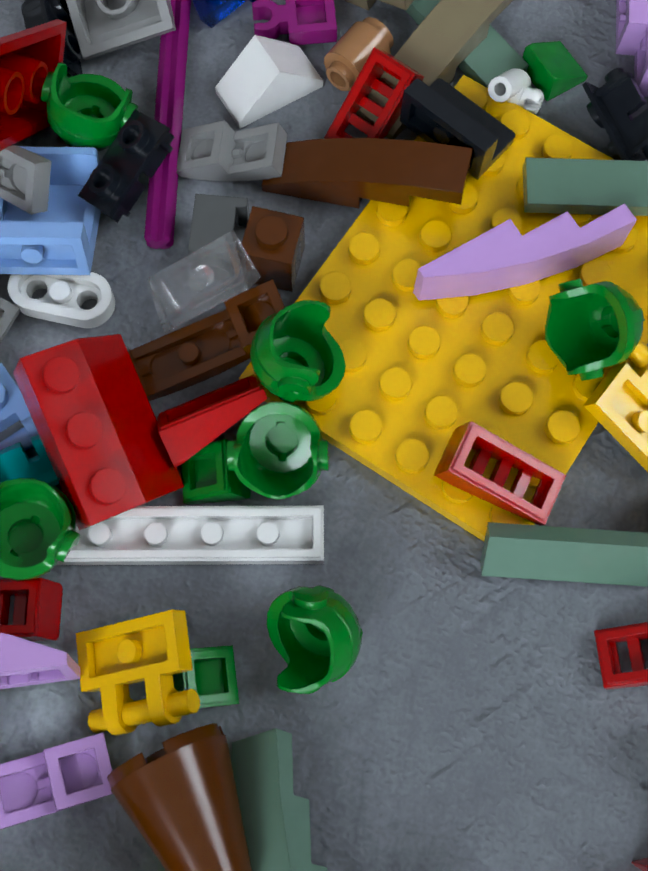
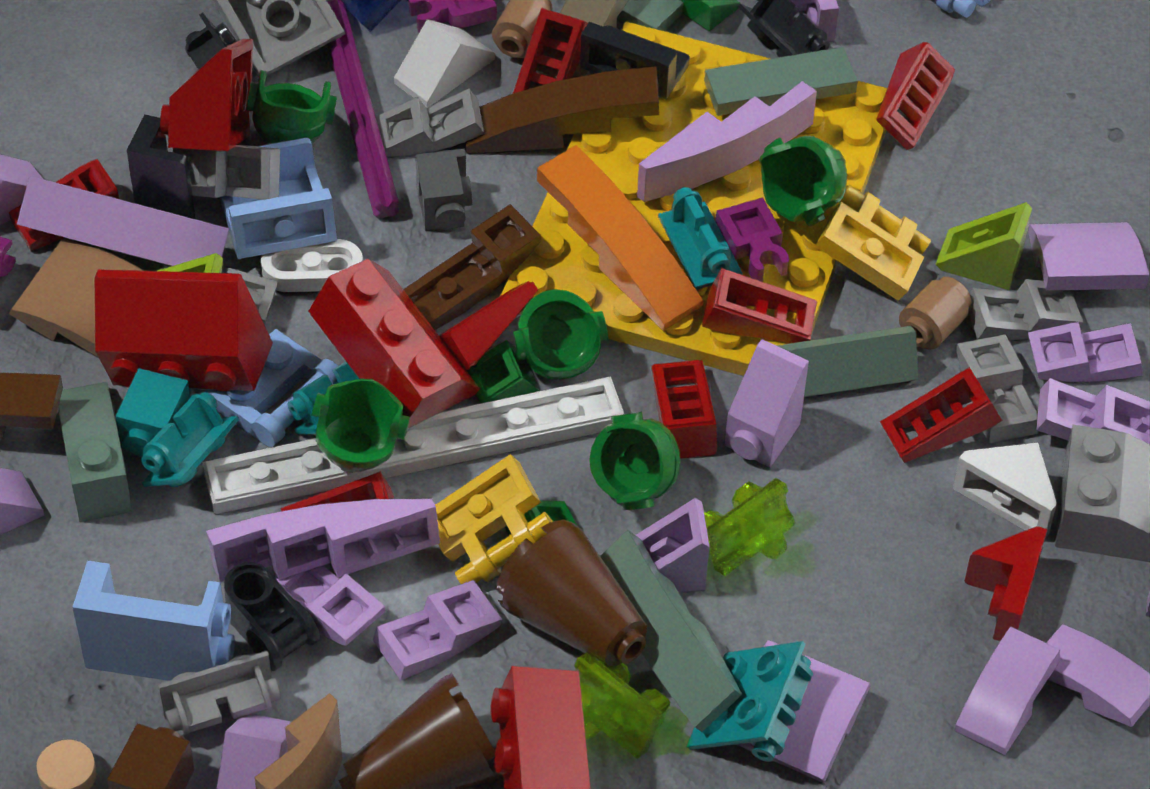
camera: 15 degrees left, 20 degrees down
(136, 150) = (341, 144): black hinge -> none
(202, 281) = (443, 220): clear slope -> none
(275, 246) = (496, 183): reddish brown brick -> none
(297, 354) = (550, 251): green cap -> none
(322, 757) = (680, 546): none -> lavender slope
(374, 350) = (621, 236): none -> orange slope
(383, 595) = (686, 409): none -> red slope
(419, 750) = (751, 527): none -> clear neon green hips
(459, 371) = (697, 238): none -> teal hinge
(472, 602) = (767, 404): none -> lavender slope
(516, 88) = (678, 22): white arm -> none
(519, 373) = (753, 233): none -> magenta plate

